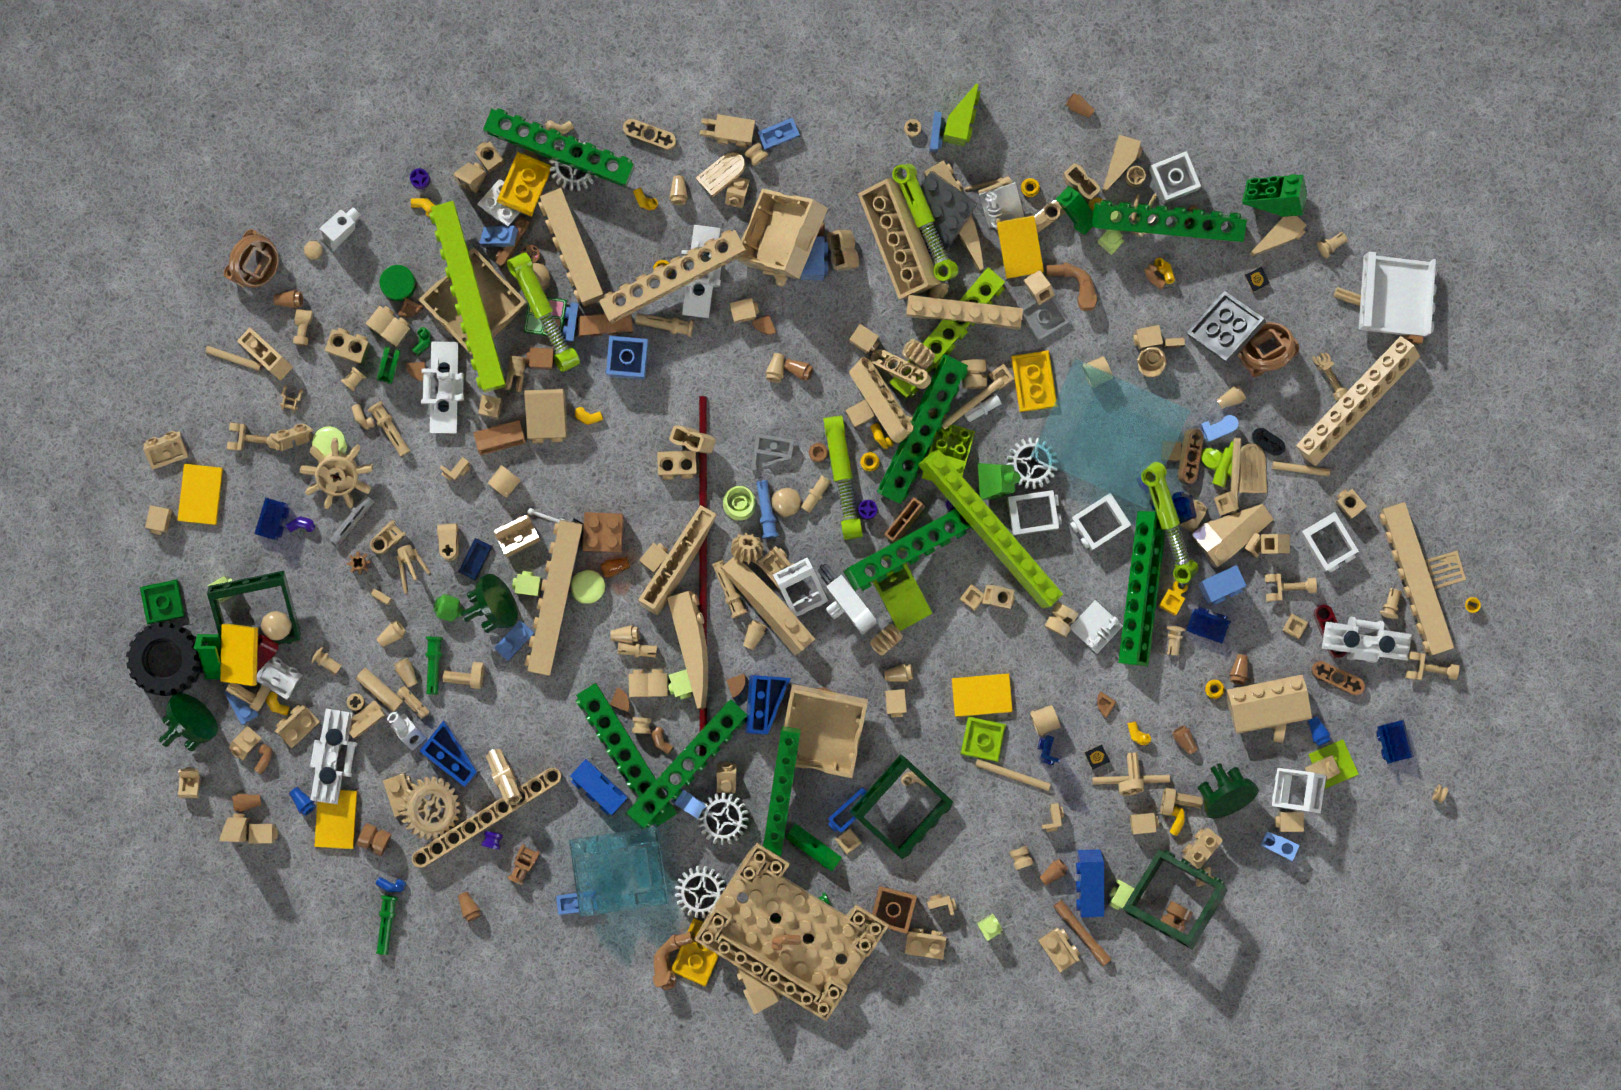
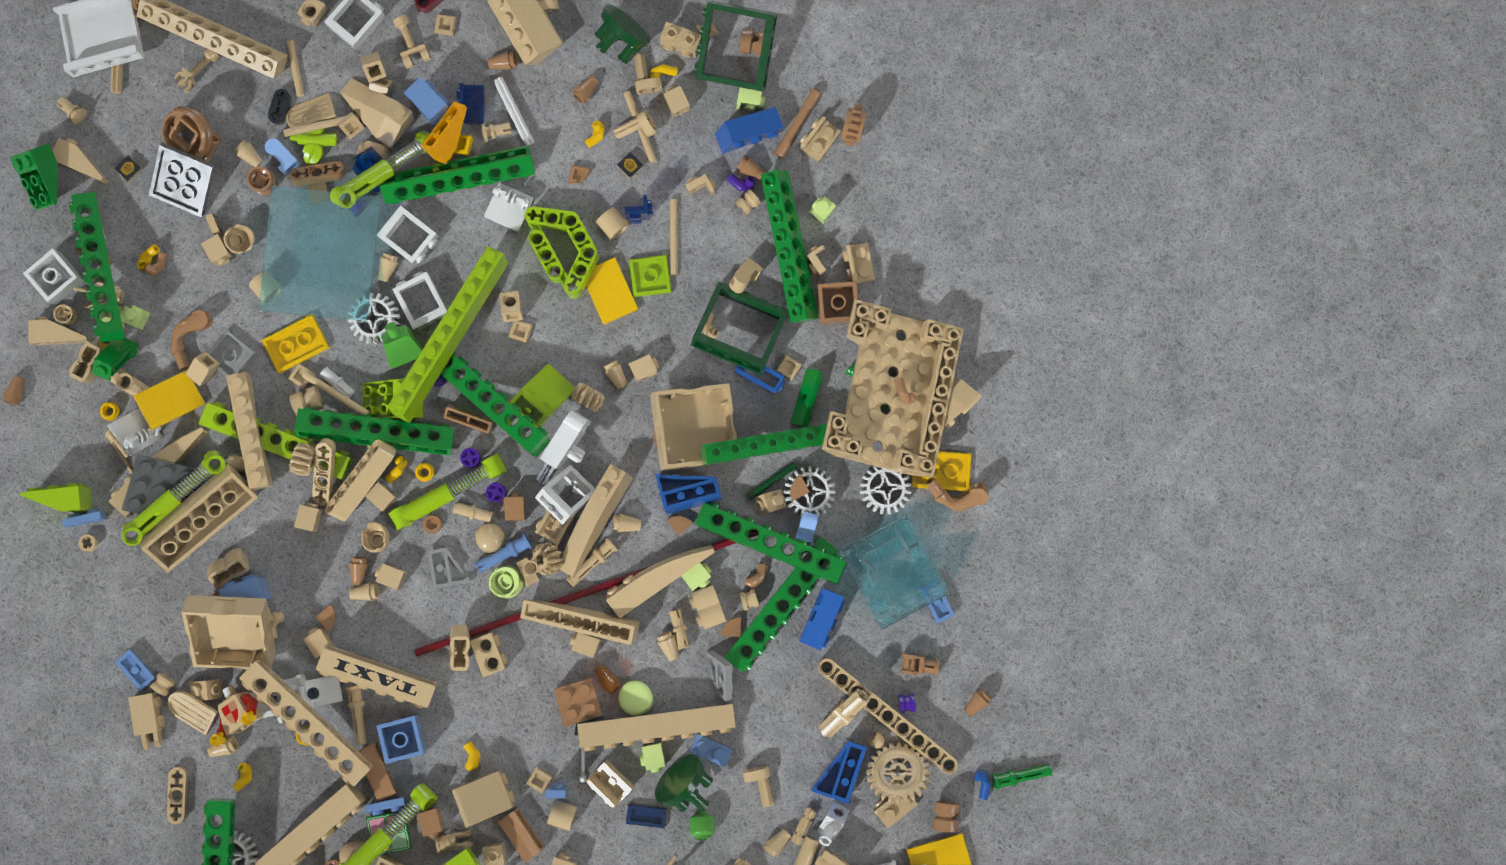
camera: 110 degrees left, 0 degrees up
(433, 654) = (751, 822): green pin -> none
(447, 538) = (635, 850): tan piece -> none
(466, 800) = (878, 740): none -> tan hinge
(528, 484) = (557, 790): none -> medium blue plate
(544, 471) = (539, 780): none -> tan tile
(579, 674) = (721, 675): none -> light grey wing
(693, 354) = (376, 676): none -> tan brick
(704, 212) = (236, 714): none -> torso
(729, 808) = (798, 488): none -> medium nougat tile
(741, 528) = (528, 569): none -> tan bar
(746, 786) = (772, 480): none -> dark green bar
(782, 397) = (390, 576): none -> tan brick
(805, 535) = (514, 507): none -> medium nougat brick
(817, 396) = (379, 543): none -> tan hair
(826, 522) = (493, 493): none -> dark purple wheel
(953, 834) = (747, 272): none -> tan leg
(964, 882) = (789, 246): none -> green brick
(1041, 857) = (743, 184): none -> dark purple arm
(1044, 648) = (544, 247): none -> lime piece
(1060, 985) = (853, 125): none -> medium nougat gear
(1061, 619) = (512, 240): tan wheel -> none
(1078, 492) = (387, 266): none -> tan cone
(1183, 590) = (445, 136): none -> light orange slope
(1187, 663) = (513, 111): none -> white axle
(1200, 401) = (261, 180): none -> medium nougat wheel
(1219, 693) = (525, 74): yellow plate -> none

